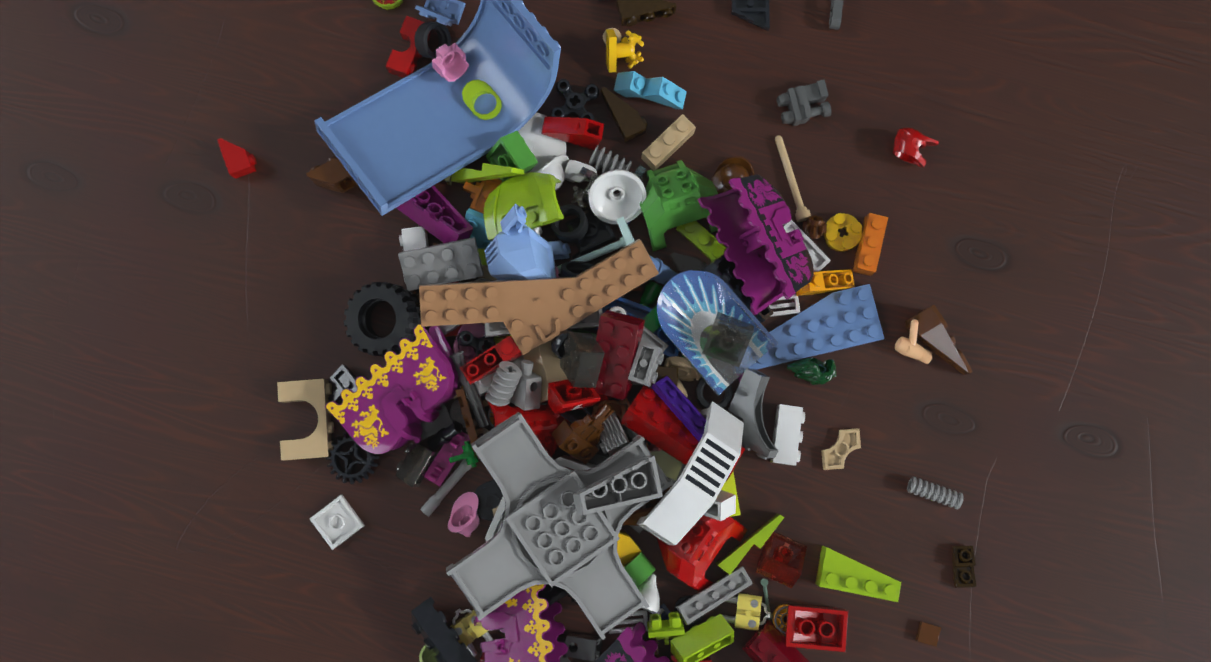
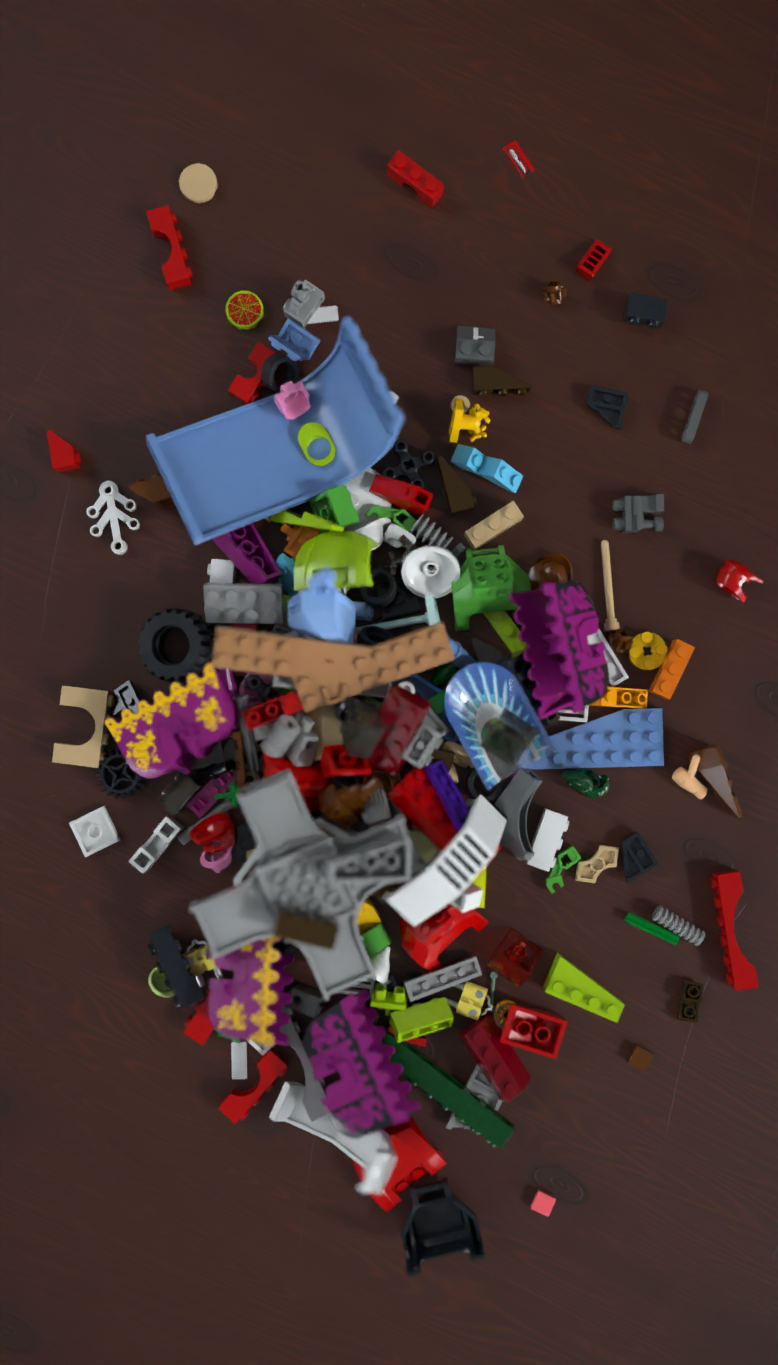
camera: 20 degrees right, 5 degrees up
(296, 207) = (112, 514): none -> white plant
(398, 527) = (156, 844): none -> white arch
(457, 491) = (214, 828): none -> red helmet
(568, 151) = (382, 512): none -> bright green piece
(568, 567) = (306, 928): none -> dark brown brick
(758, 538) = (497, 933): lime slope -> none
(802, 467) = (555, 873): none -> bright green piece
(878, 434) = (636, 857): none -> black wing
(909, 501) = (651, 928): none -> green axle
(975, 447) = (728, 890): none -> red arch

